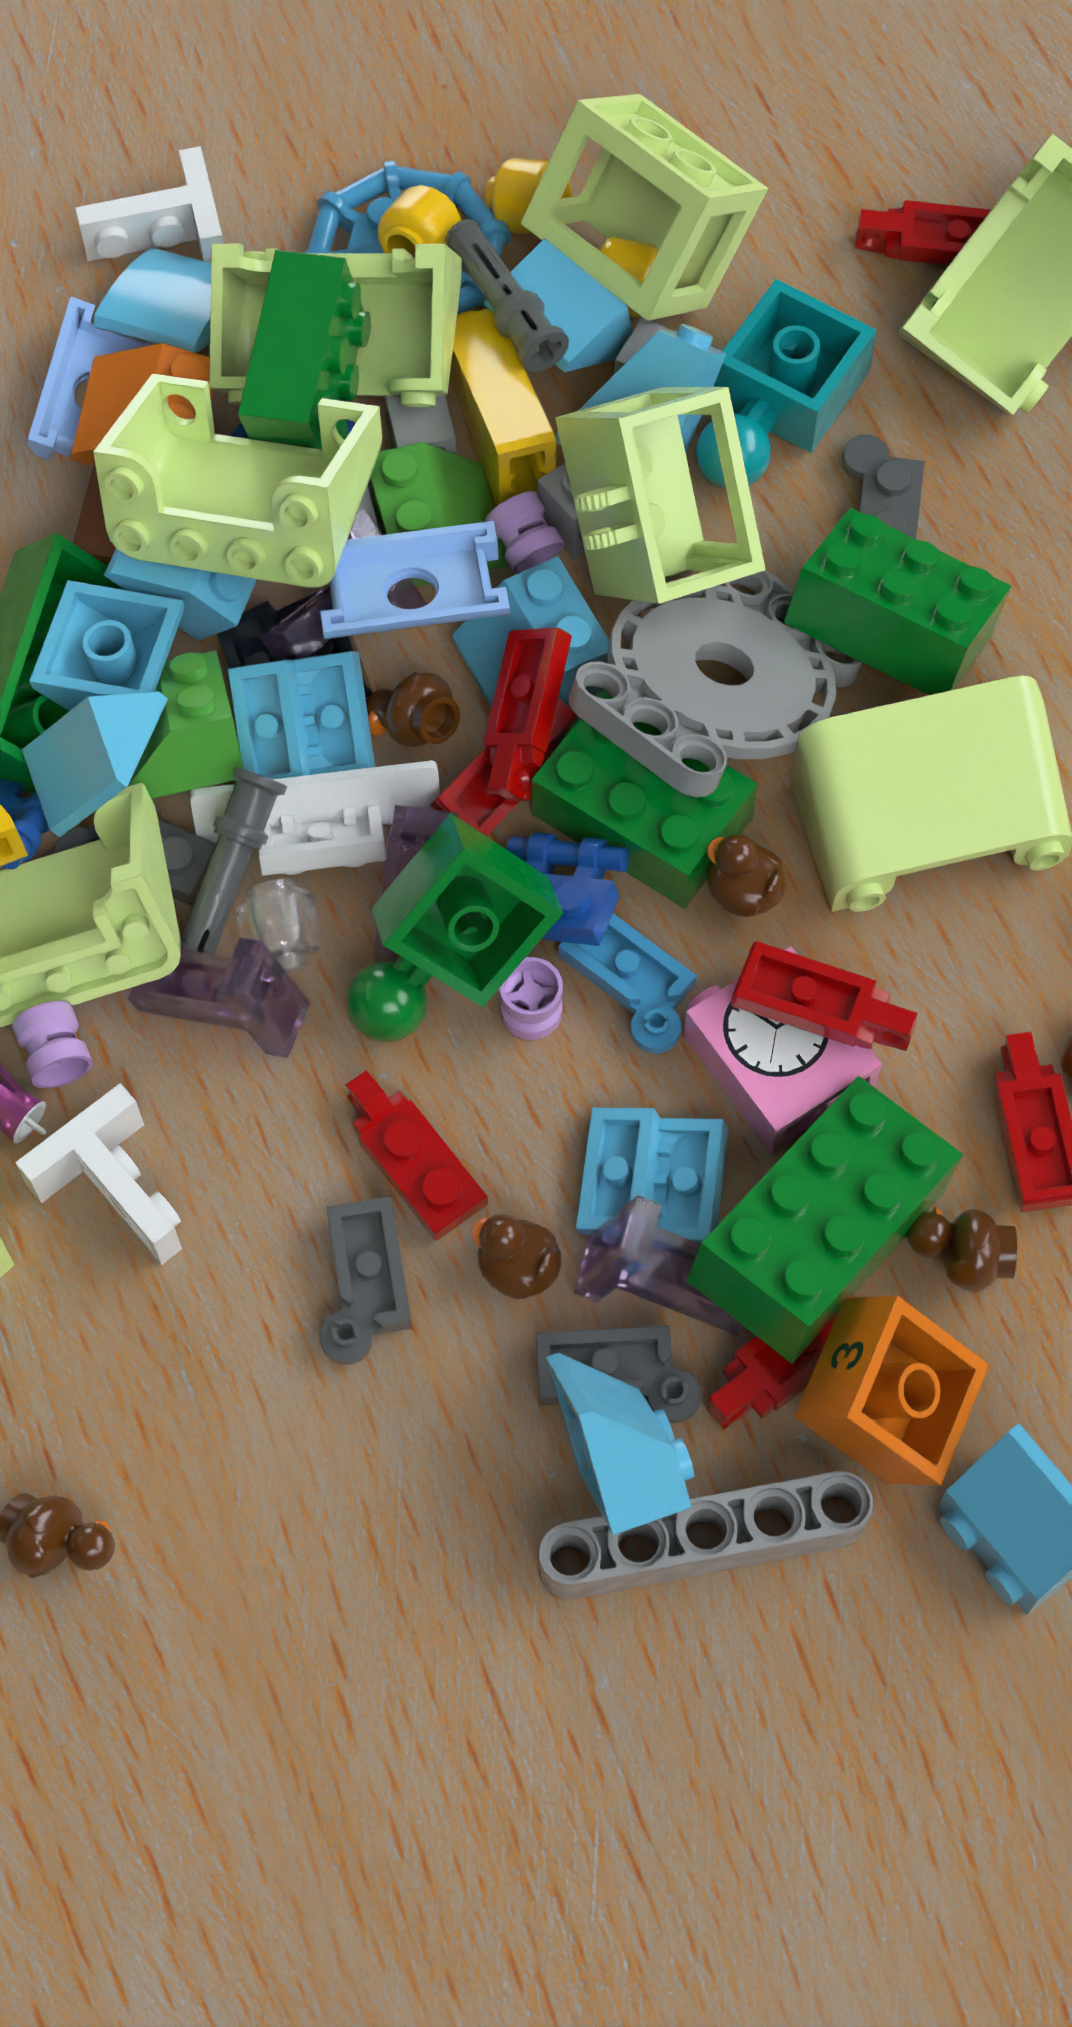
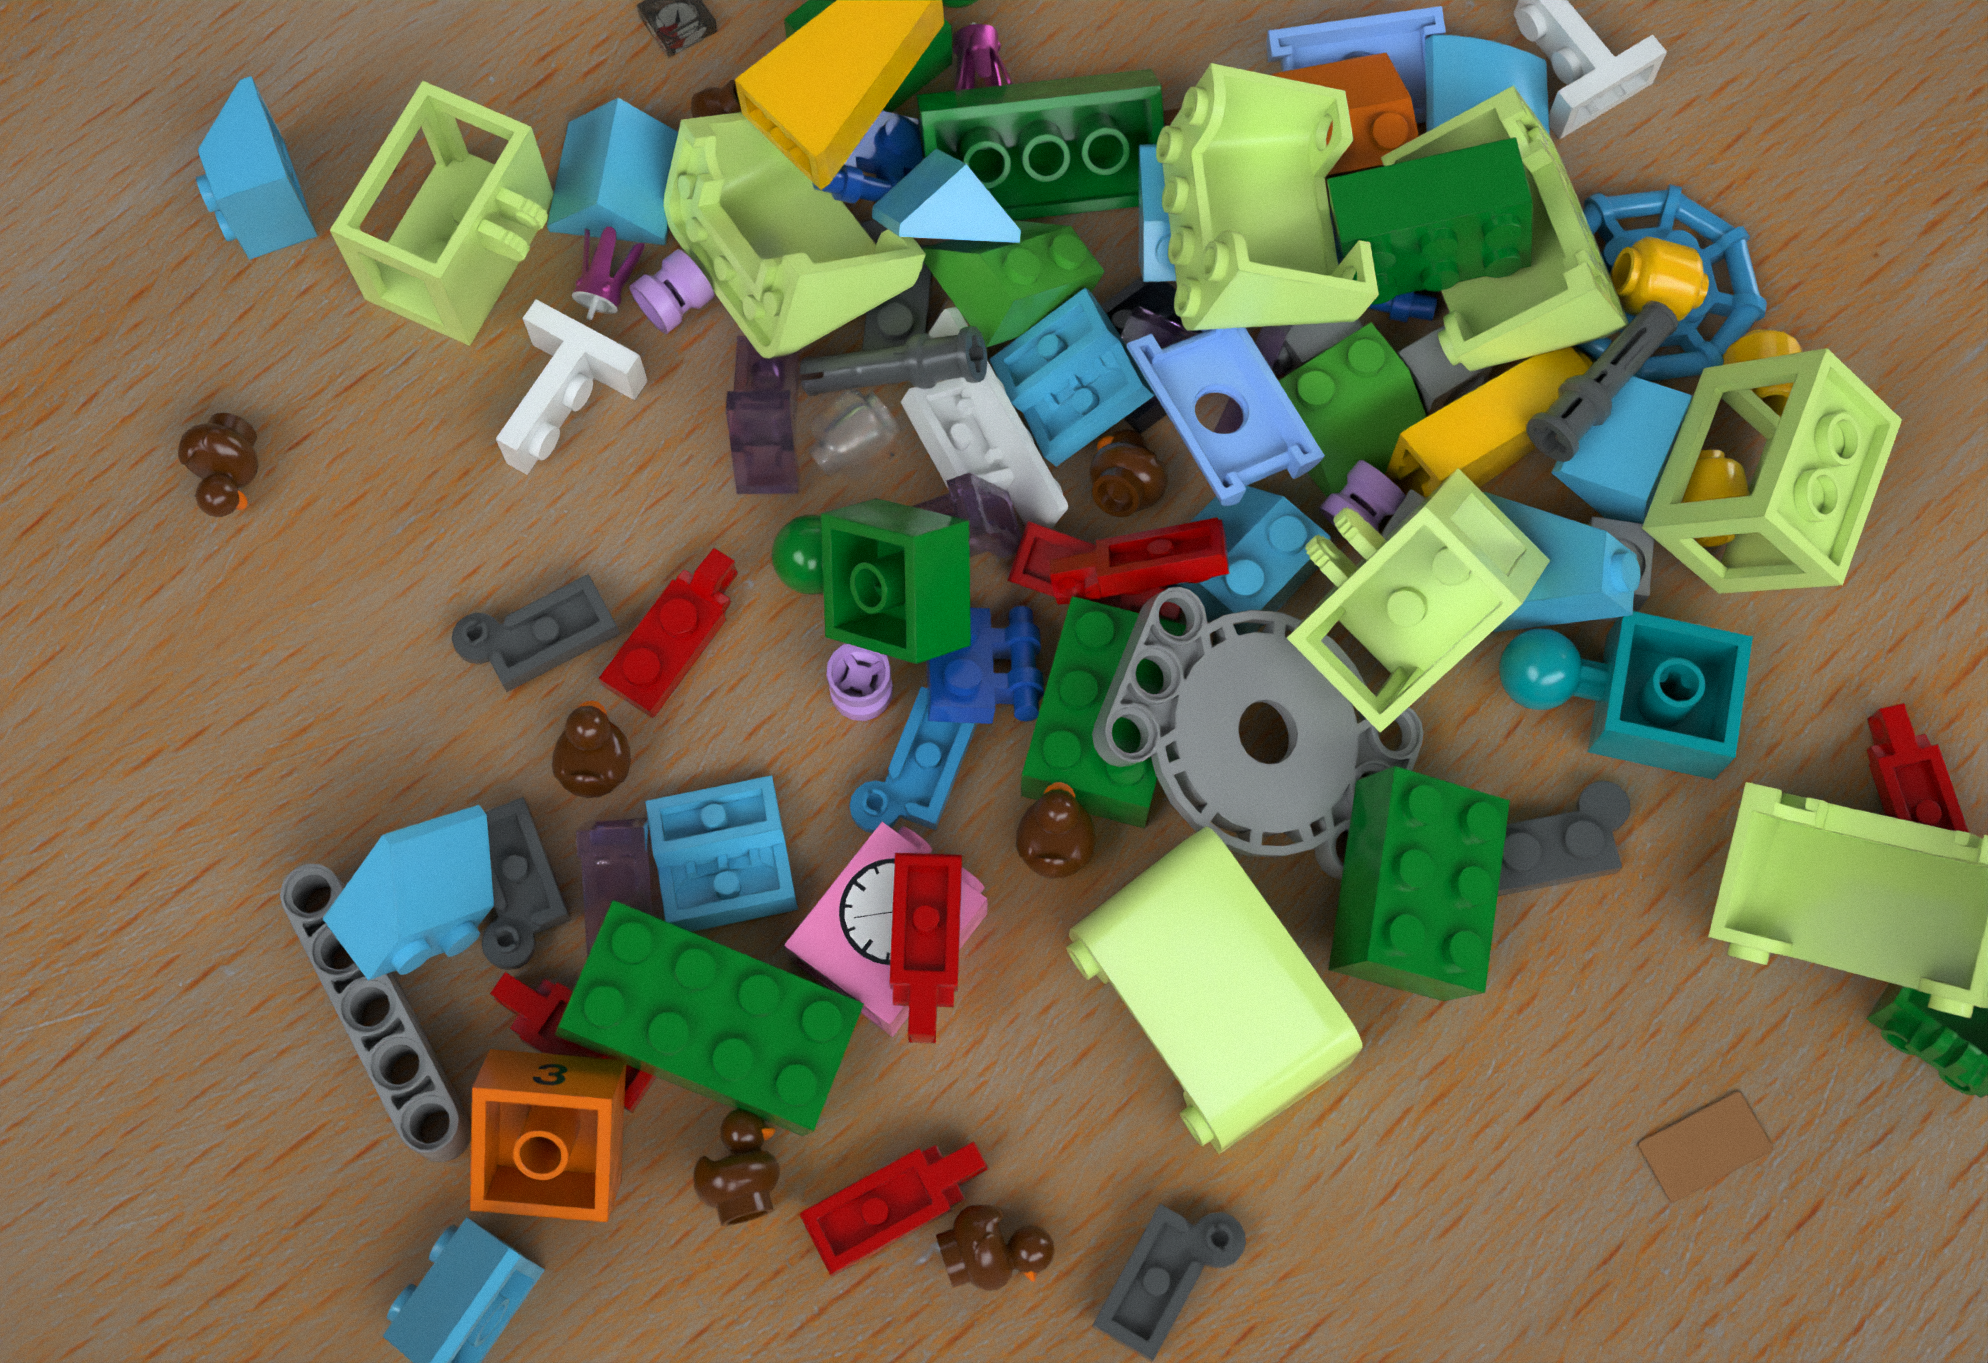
camera: 70 degrees right, 5 degrees up
(105, 643) = (1065, 175): medium azure slope -> none

